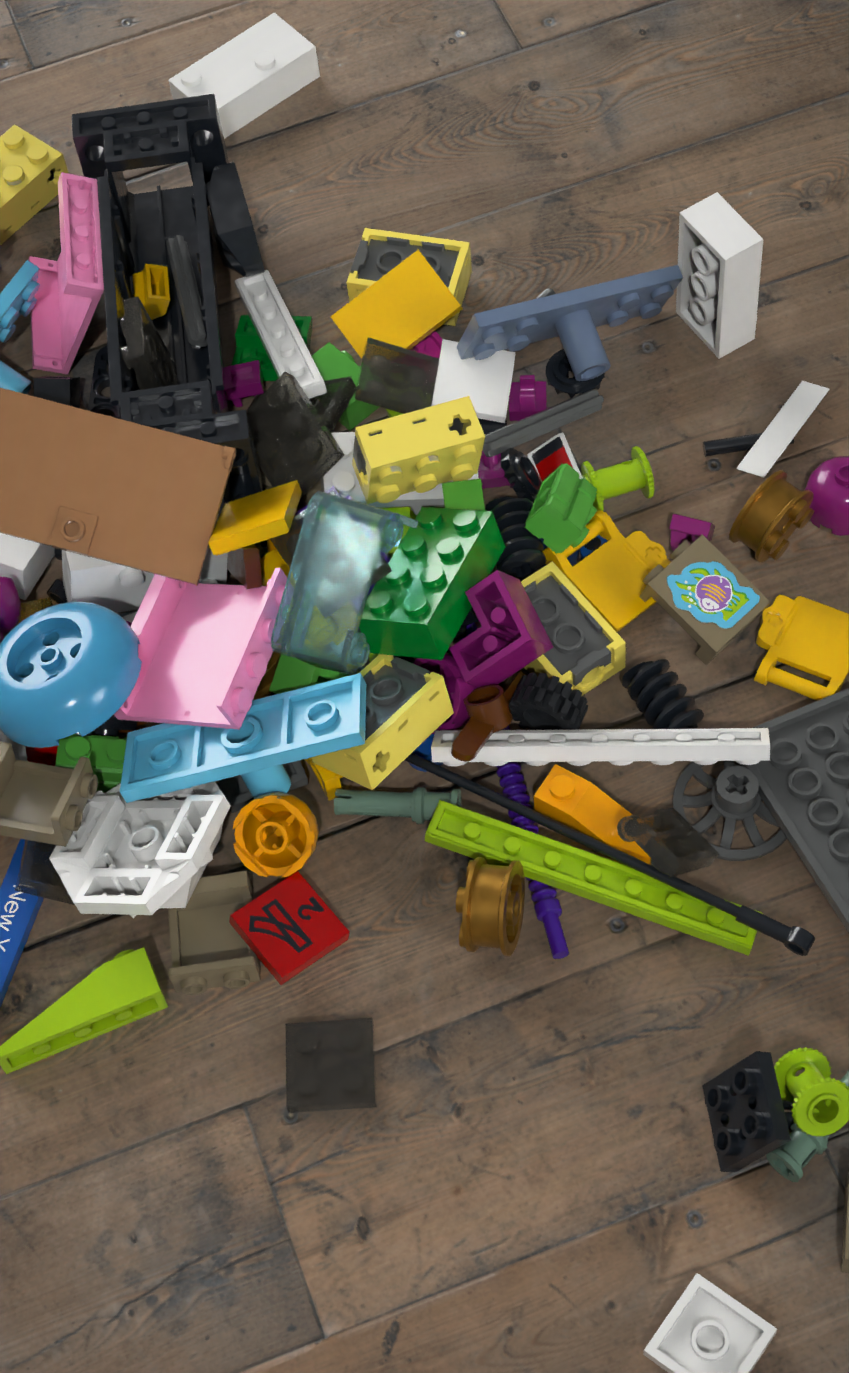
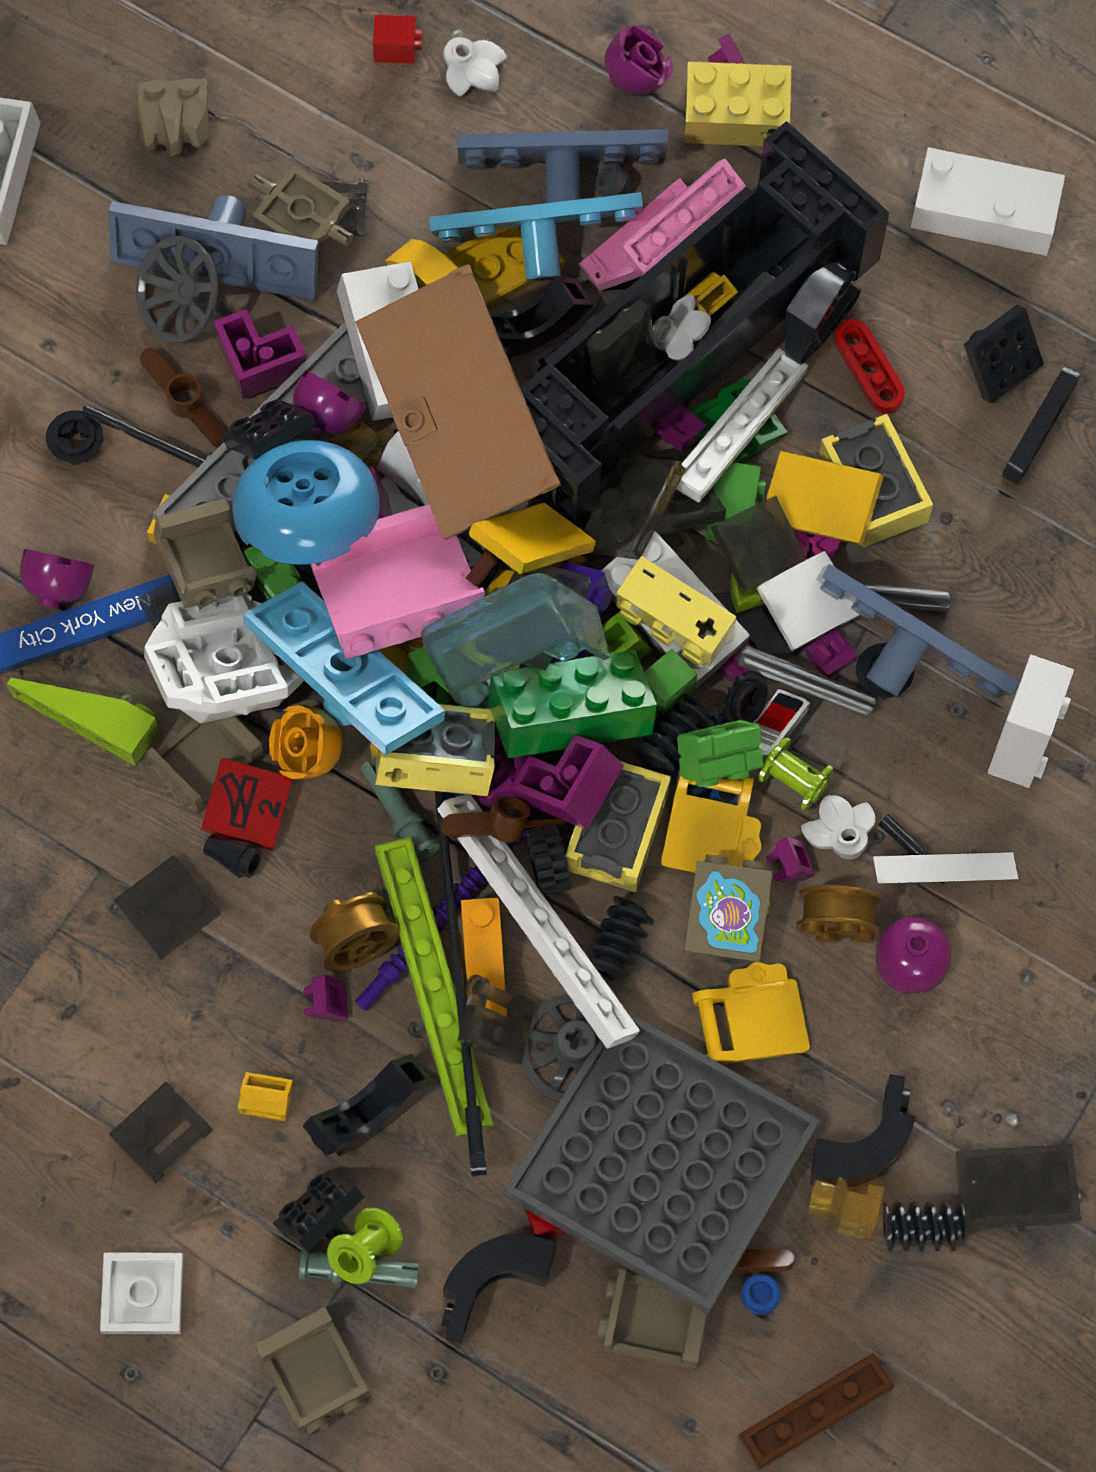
camera: 45 degrees right, 10 degrees up
(168, 315) = (680, 328): none -> white plate
(307, 230) = (869, 353): none -> red plate
(329, 970) = (235, 855): none -> black cone
(379, 135) = (996, 350): none -> black plate
(458, 151) = (1041, 424): none -> black beam
(535, 973) = (328, 998): none -> magenta tile
(538, 1221) = (152, 1123): none -> clear smoke plate
(589, 1094) = (265, 1096): none -> yellow piece
(672, 1000) = (371, 1109): none -> black arch
(685, 481) = (839, 822): none -> white plate

